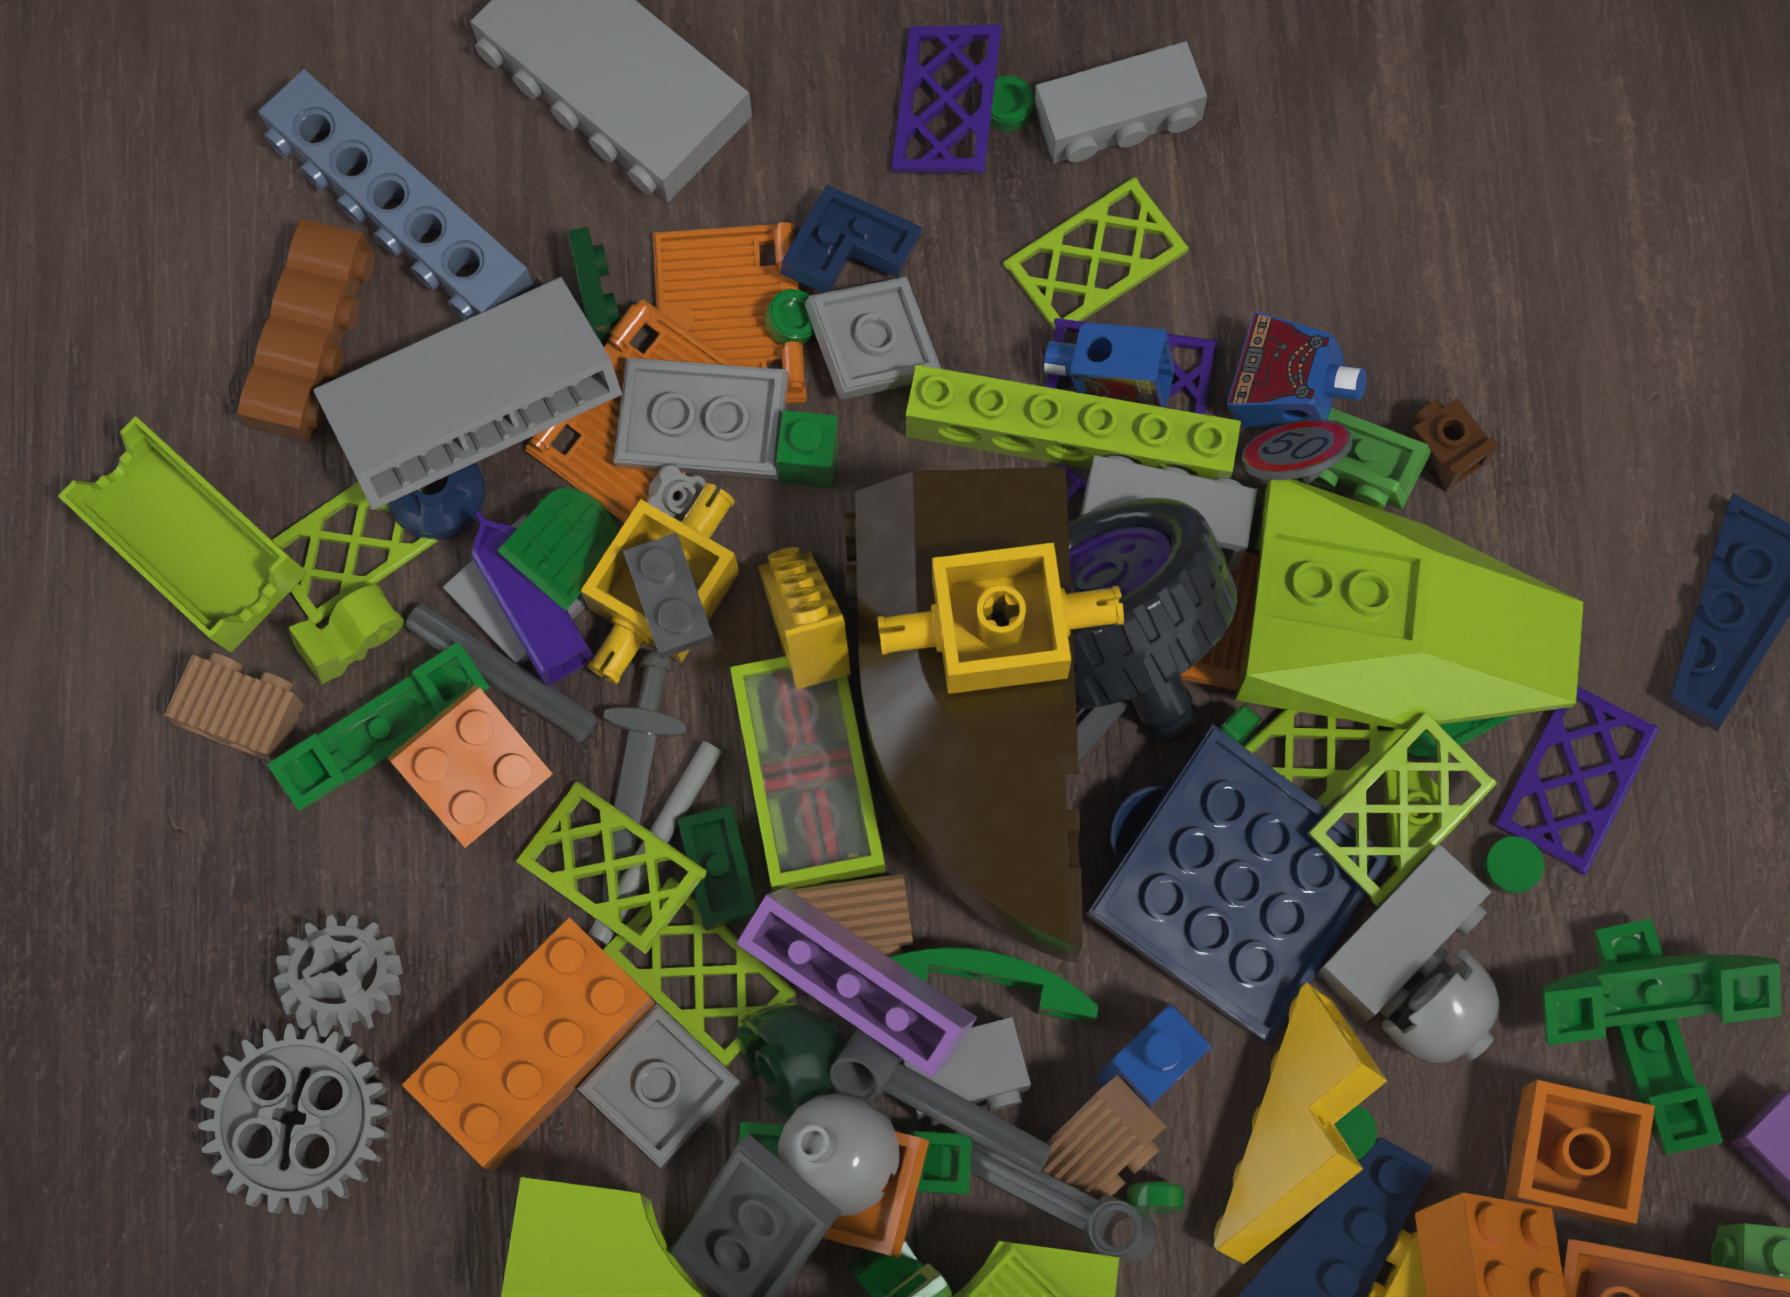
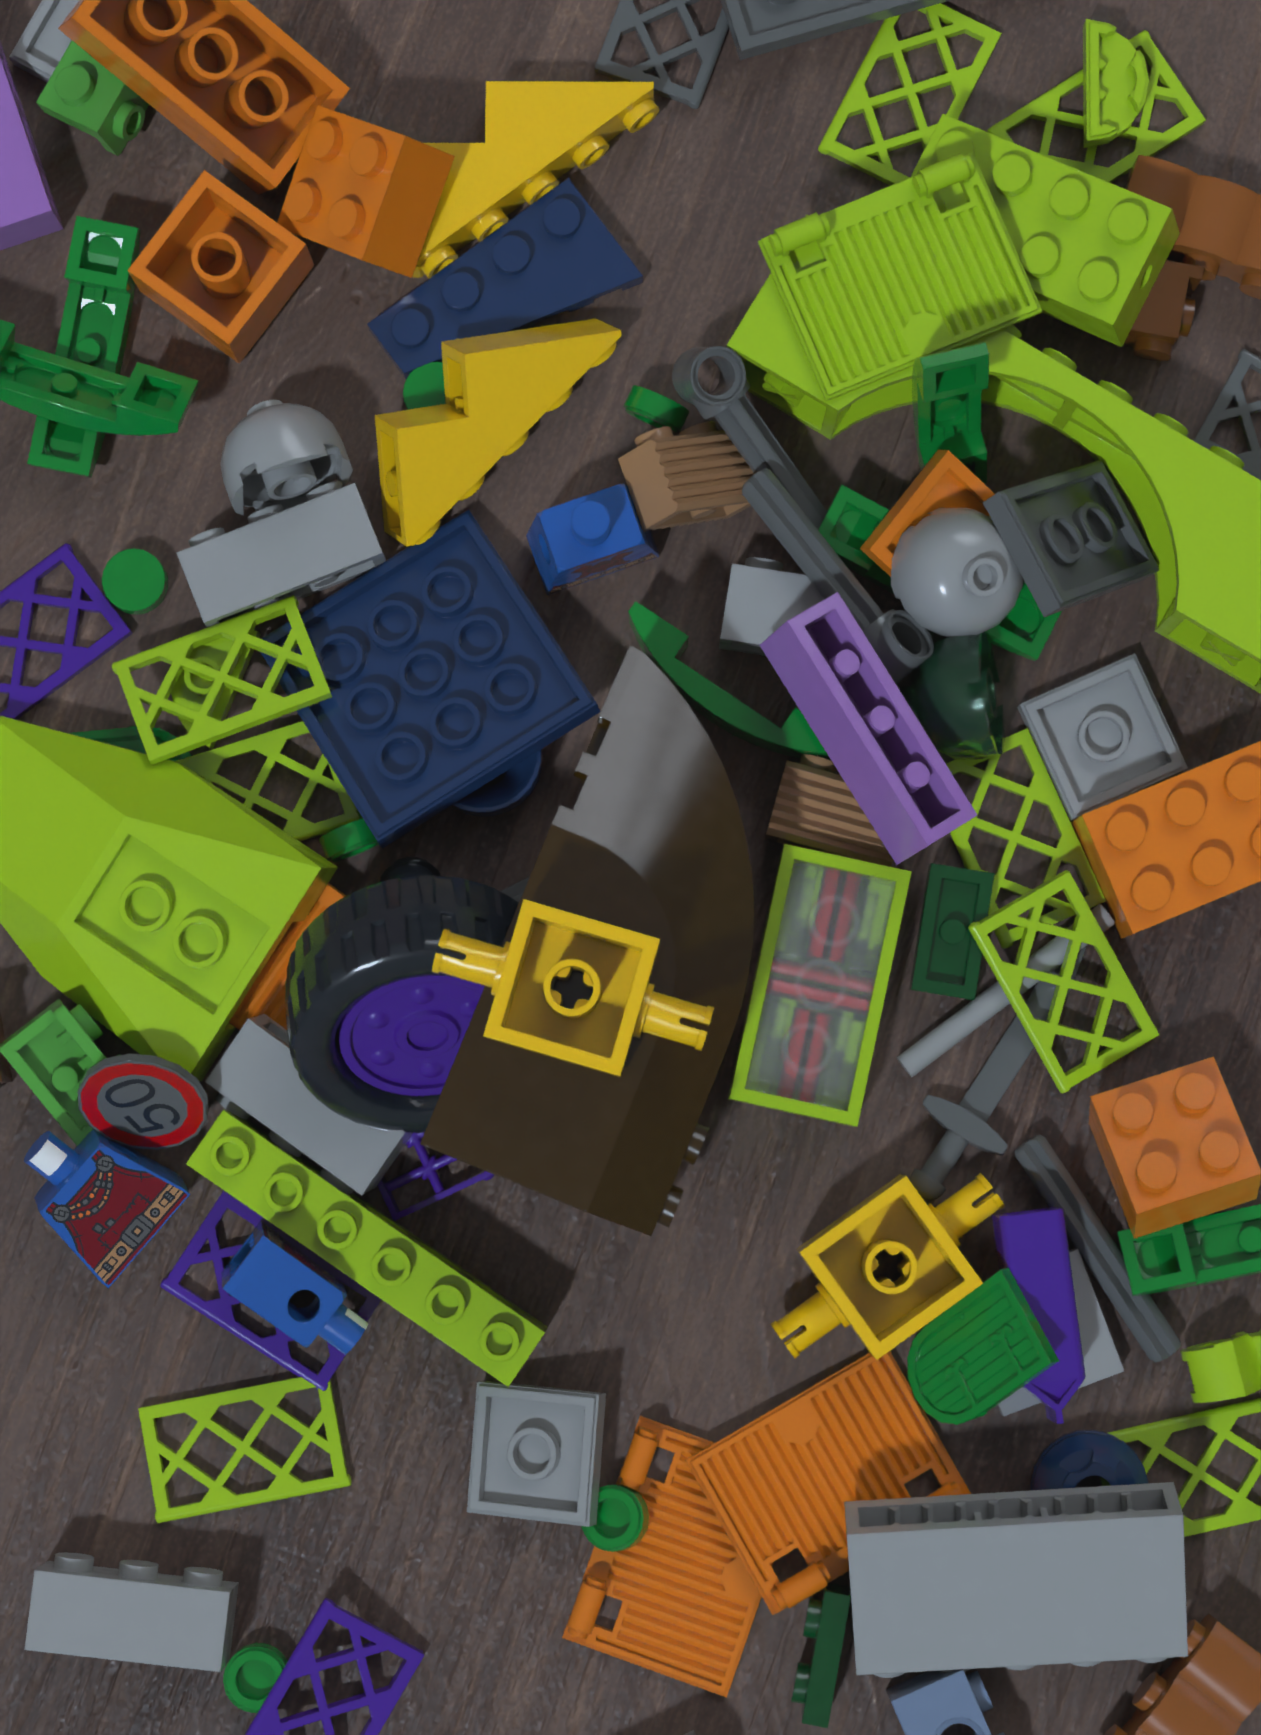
camera: 155 degrees left, 10 degrees up
(666, 483) = (832, 1378): light grey plate -> none
(668, 595) = (892, 1232): flat silver plate -> none
(701, 418) = (766, 1439): light grey tile -> none
(805, 617) = (754, 1155): yellow slope -> none
(808, 449) = (664, 1351): green brick -> none
(847, 228) = (512, 1598): dark blue plate -> none

